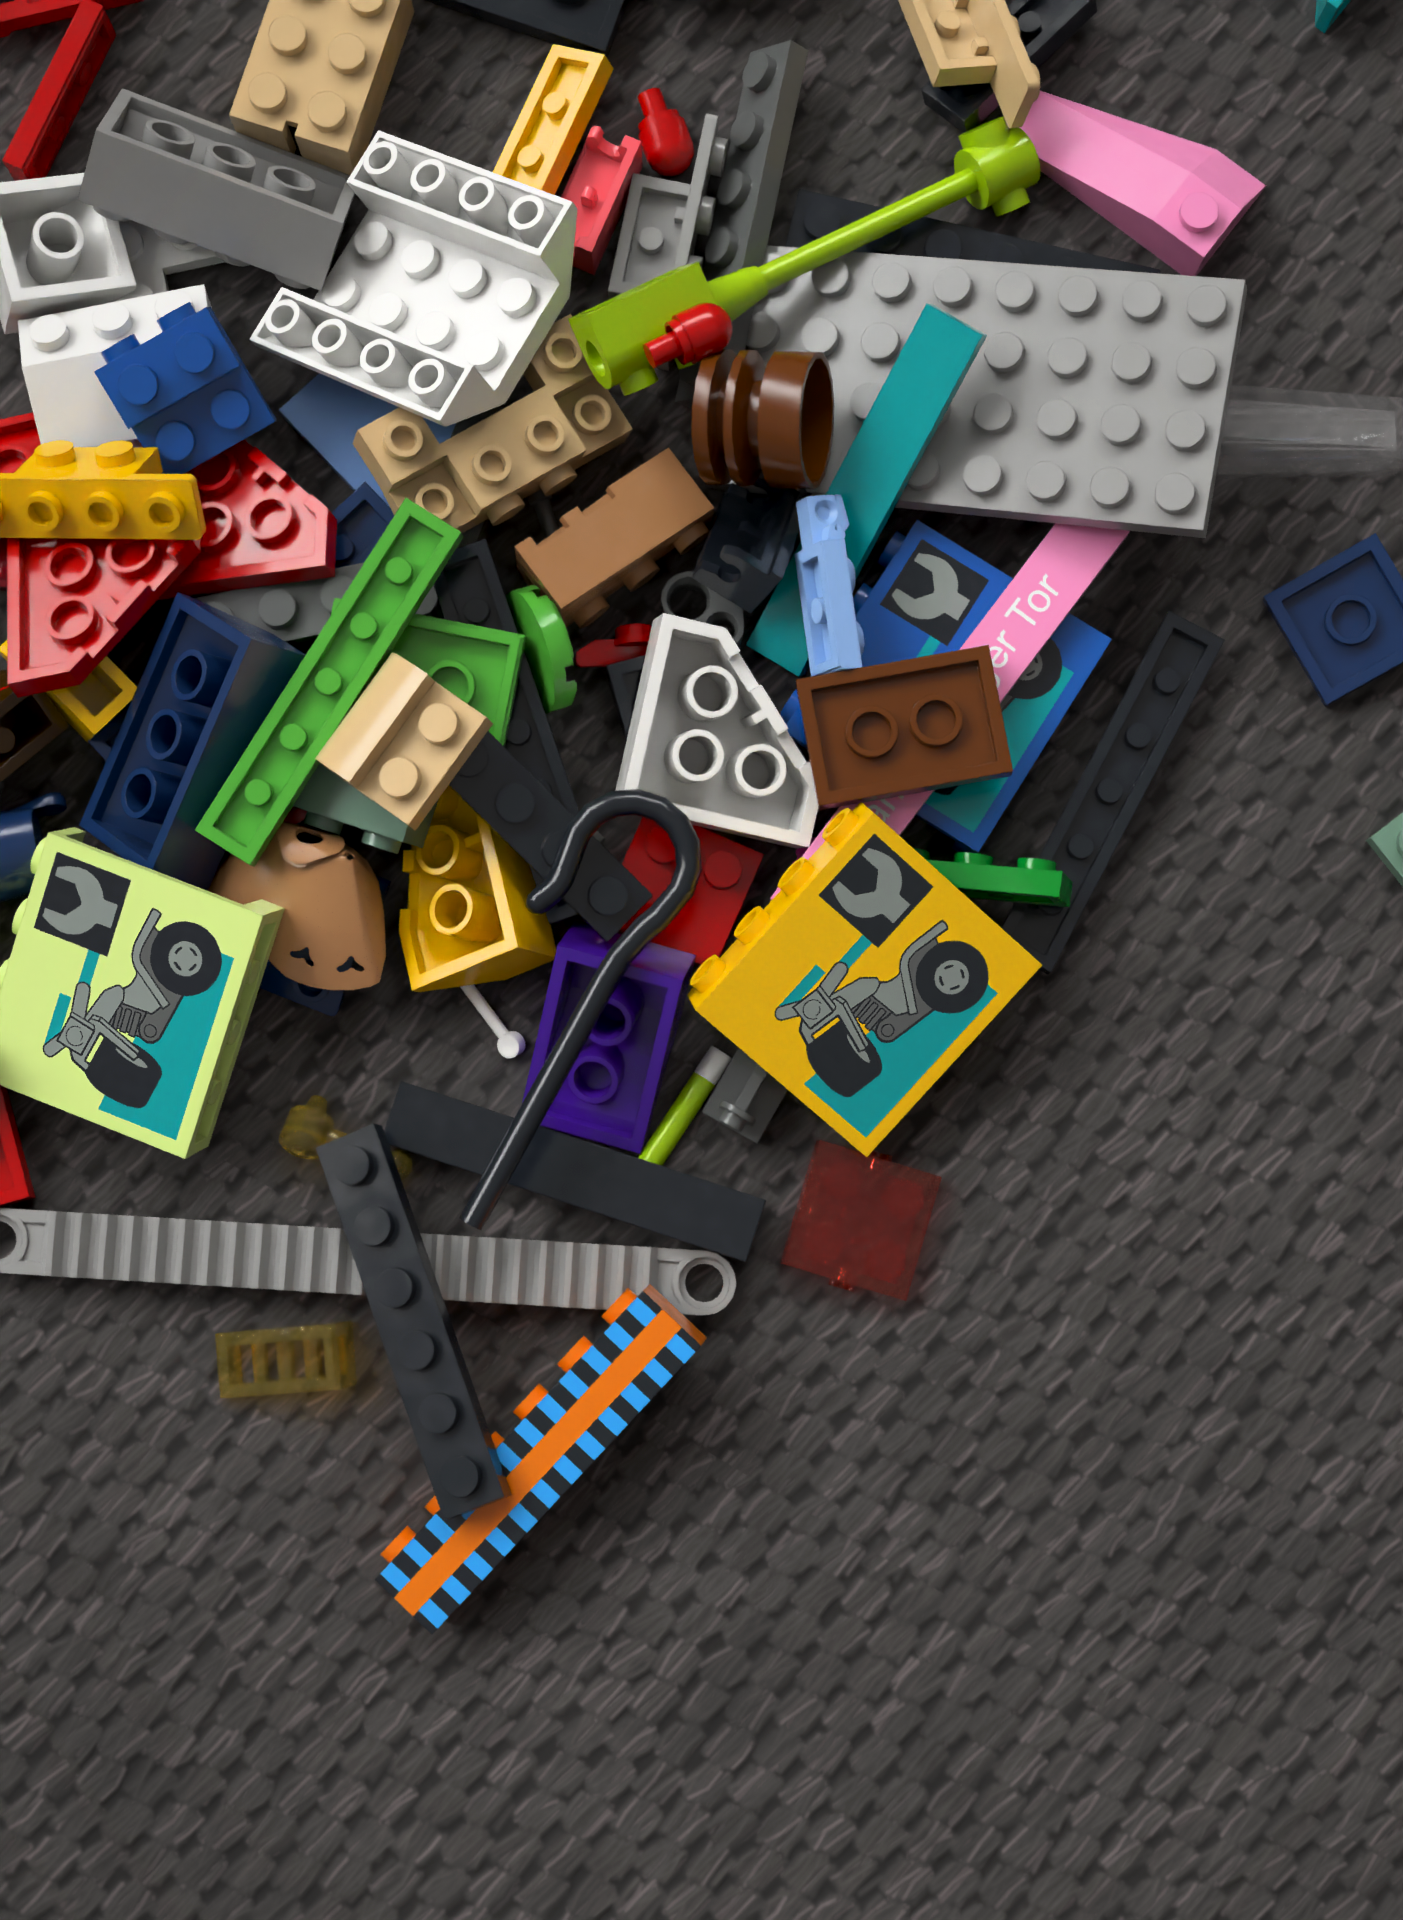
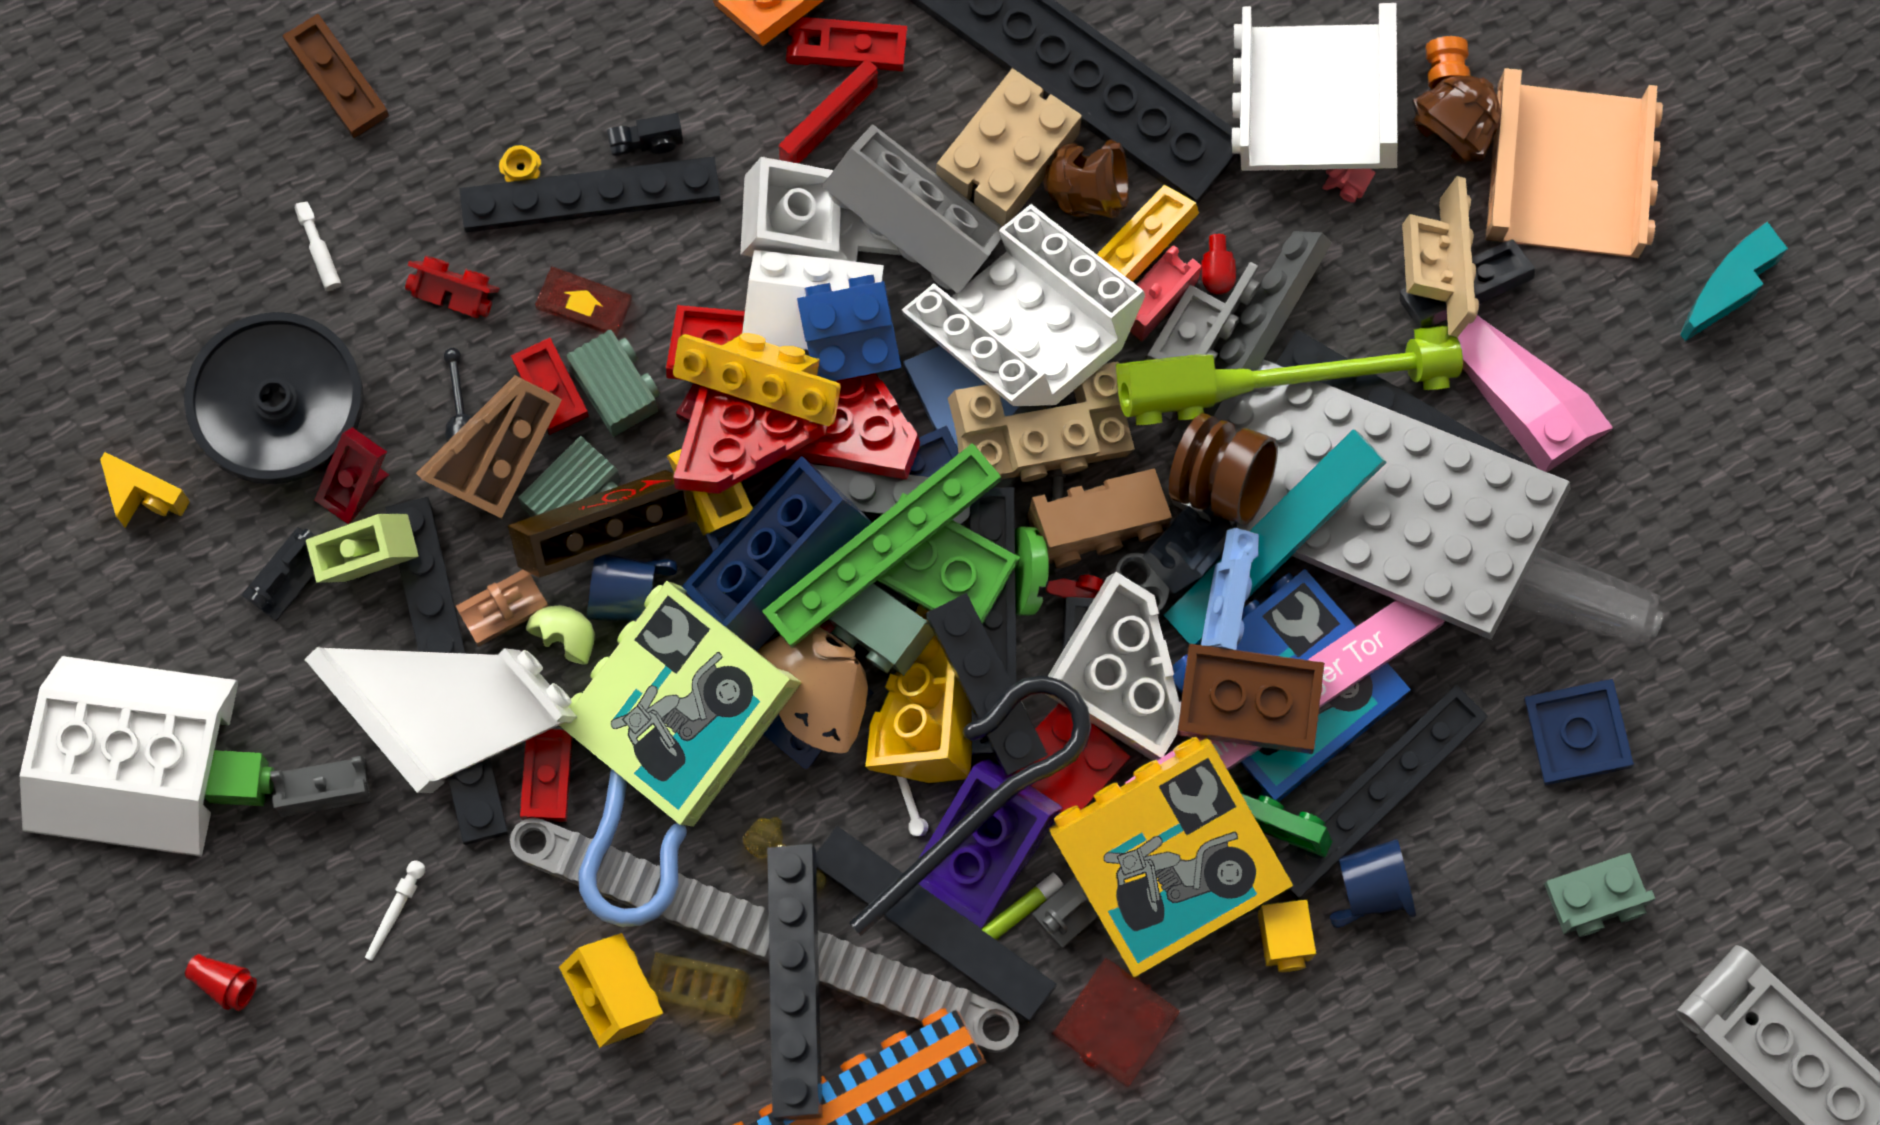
camera: 15 degrees right, 10 degrees down
(86, 1226) = (598, 847): none -> medium blue piece
(170, 1410) = (611, 989): none -> yellow brick
(404, 740) = (918, 597): tan brick -> none
(448, 75) = (1089, 183): none -> reddish brown helmet
(691, 336) = (1193, 400): red cylinder -> none
(1051, 1028) = (1286, 935): none -> yellow brick
(1146, 919) = (1374, 883): none -> dark blue hat

